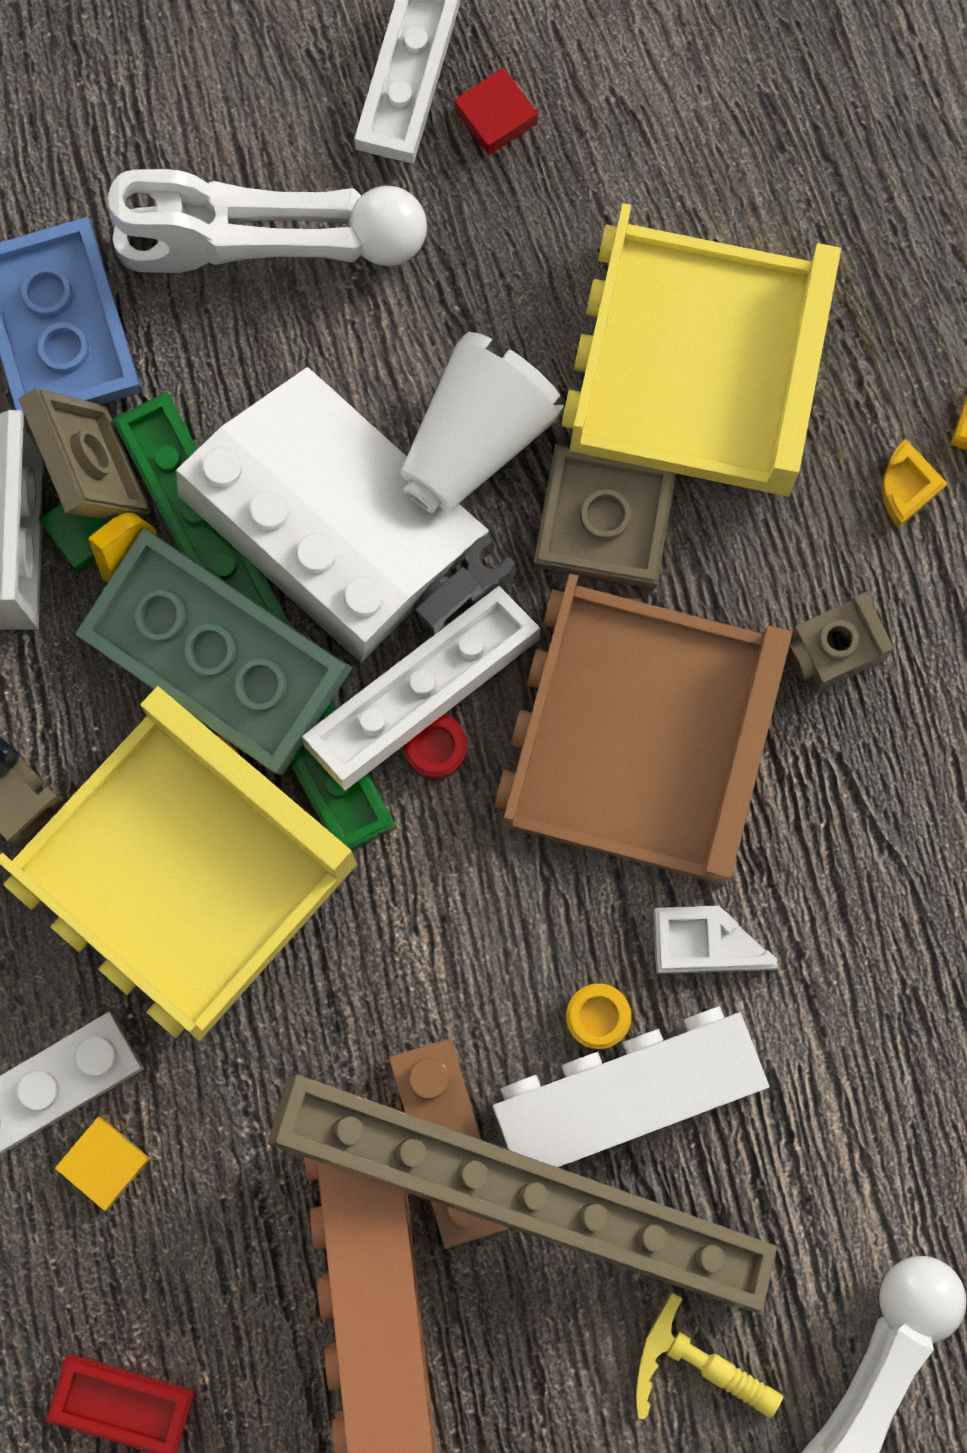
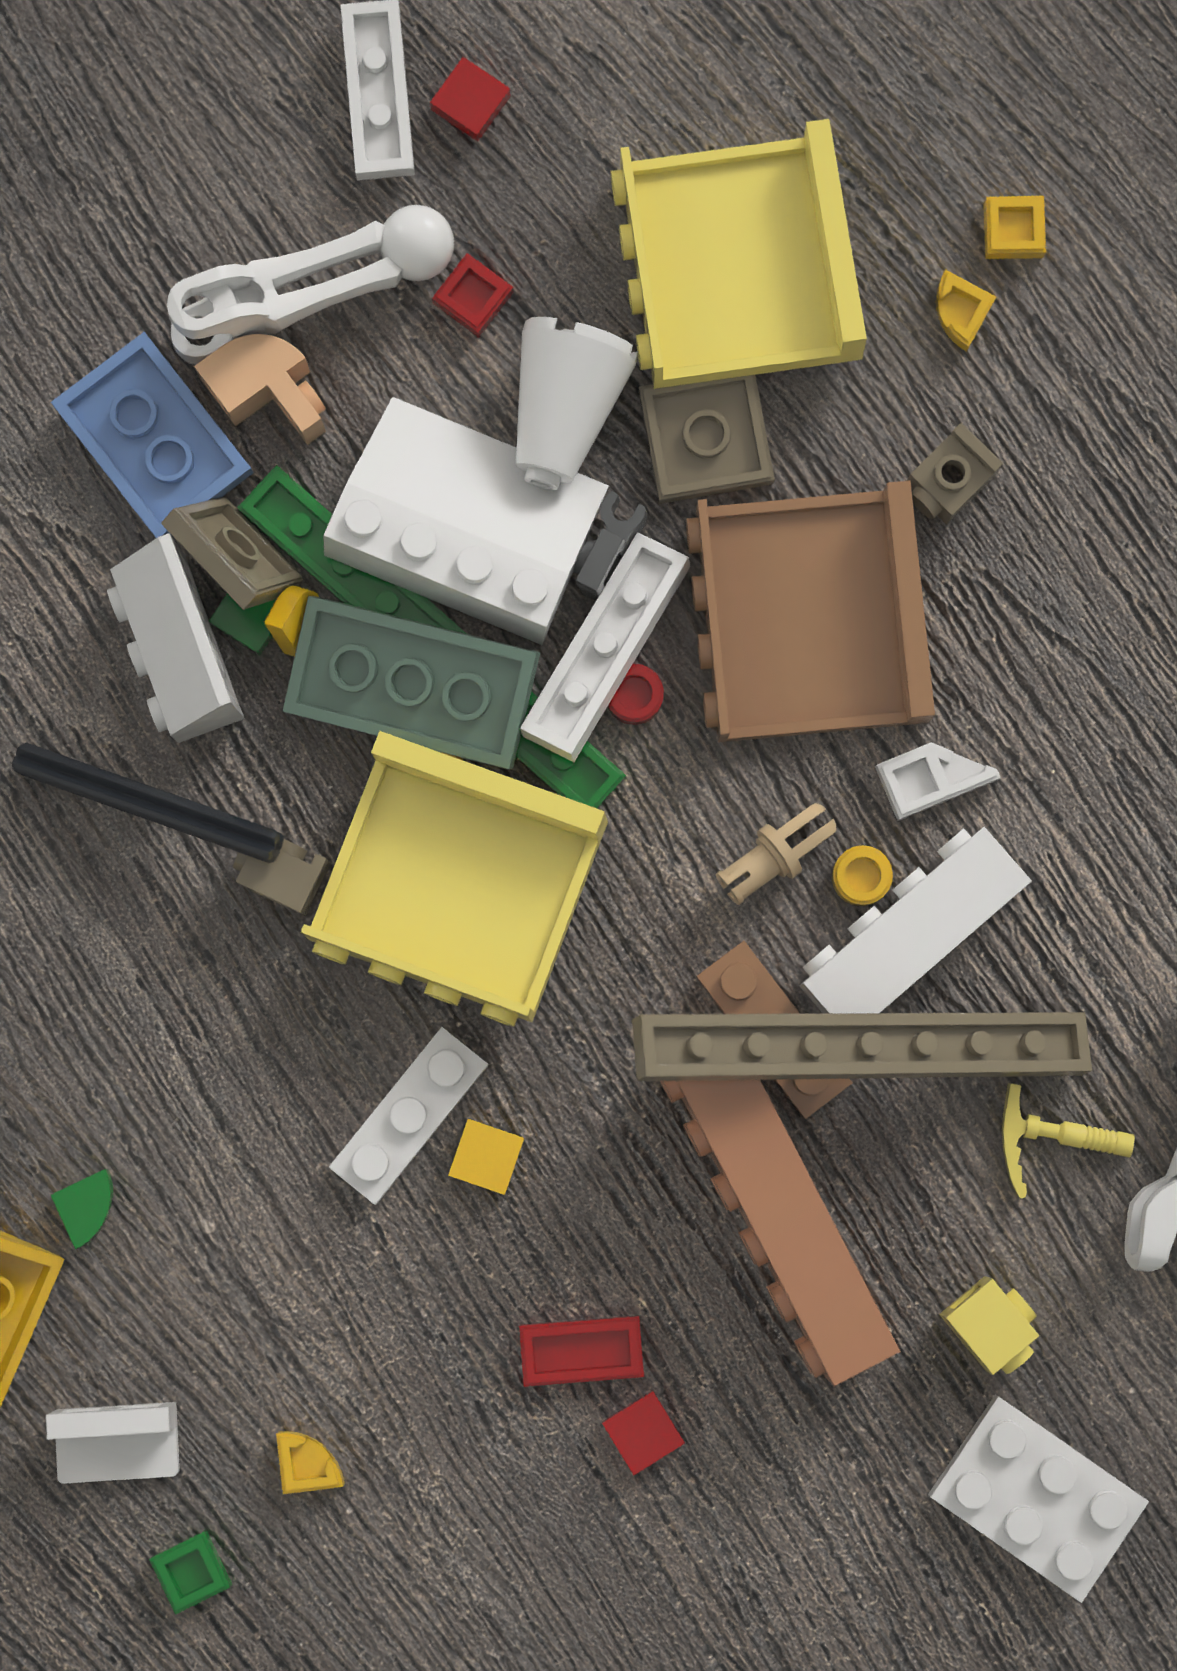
camera: 20 degrees left, 5 degrees up
(184, 294) = (258, 370): none -> light nougat brick
(425, 298) = (472, 295): none -> red tile
(513, 961) = (774, 855): none -> tan arm

